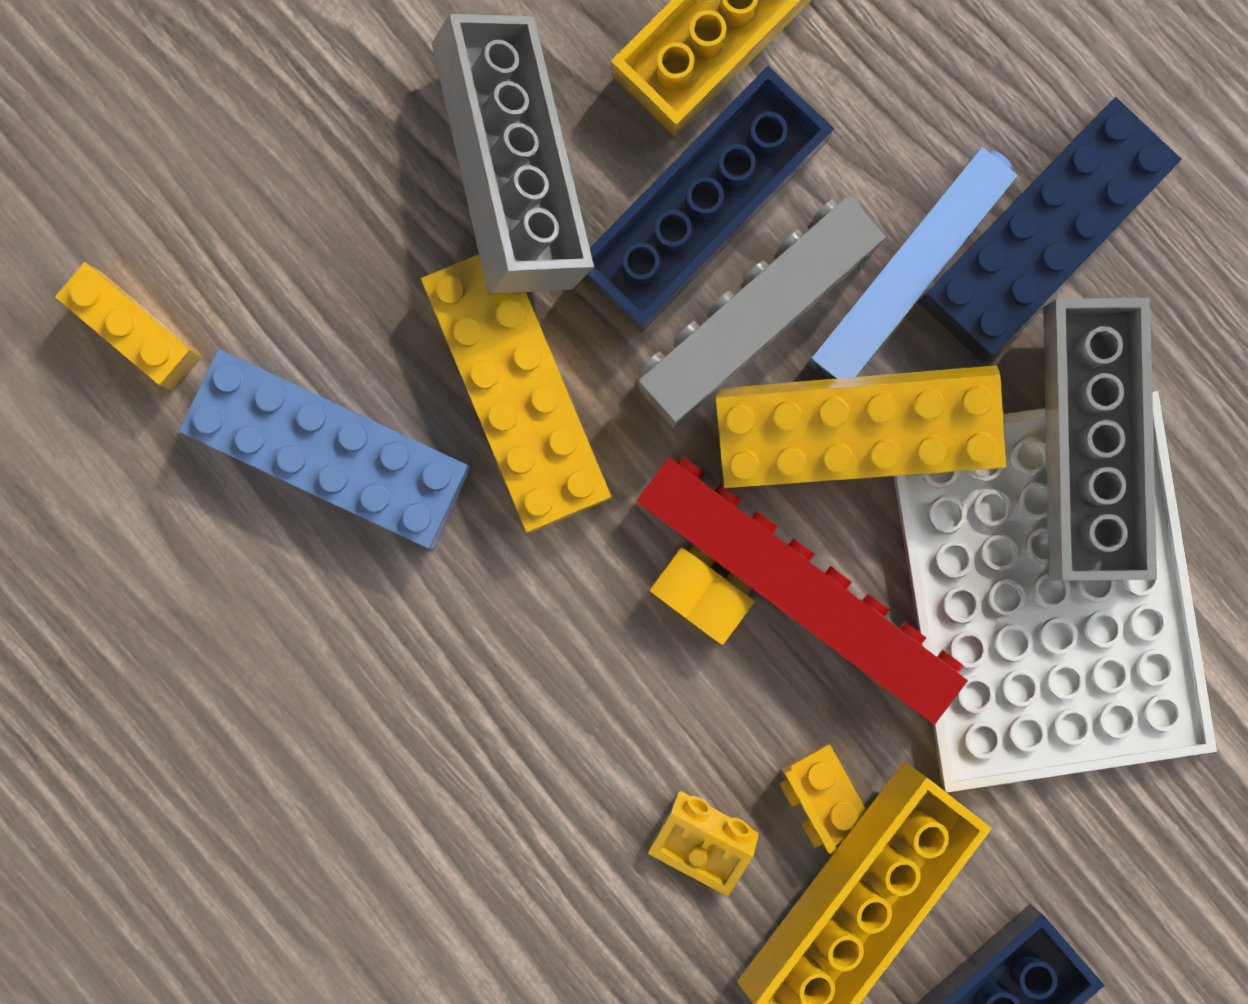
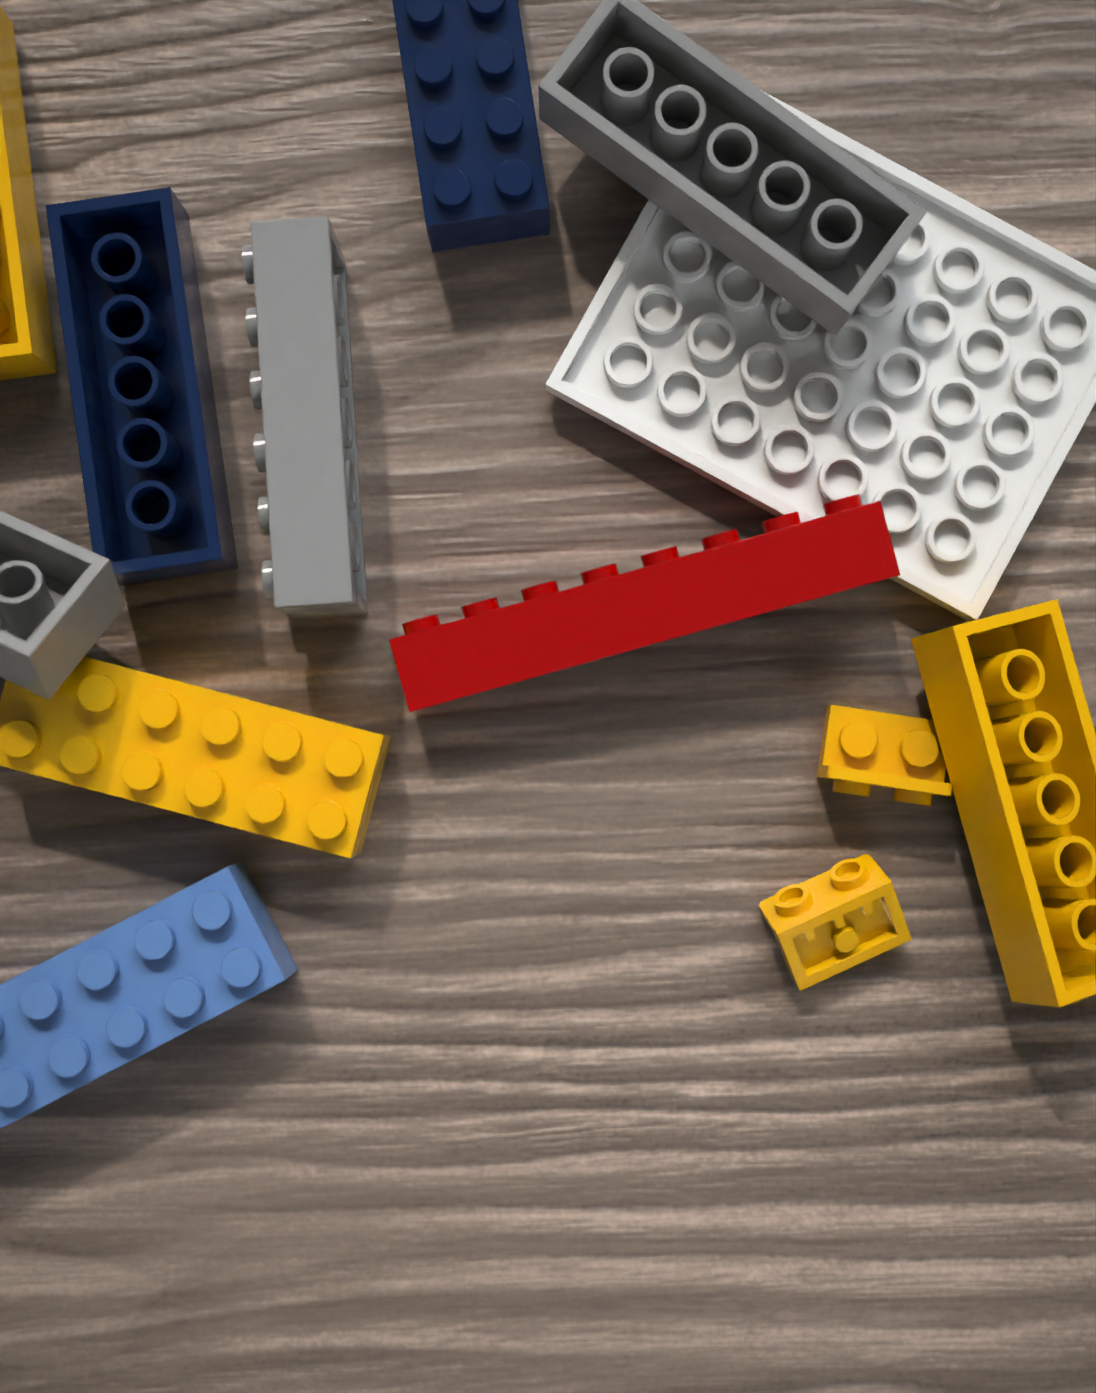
camera: 50 degrees left, 0 degrees up
(702, 594) = (566, 717): yellow brick -> none
(861, 427) = (518, 403): yellow brick -> none
(914, 266) = (390, 226): light blue brick -> none

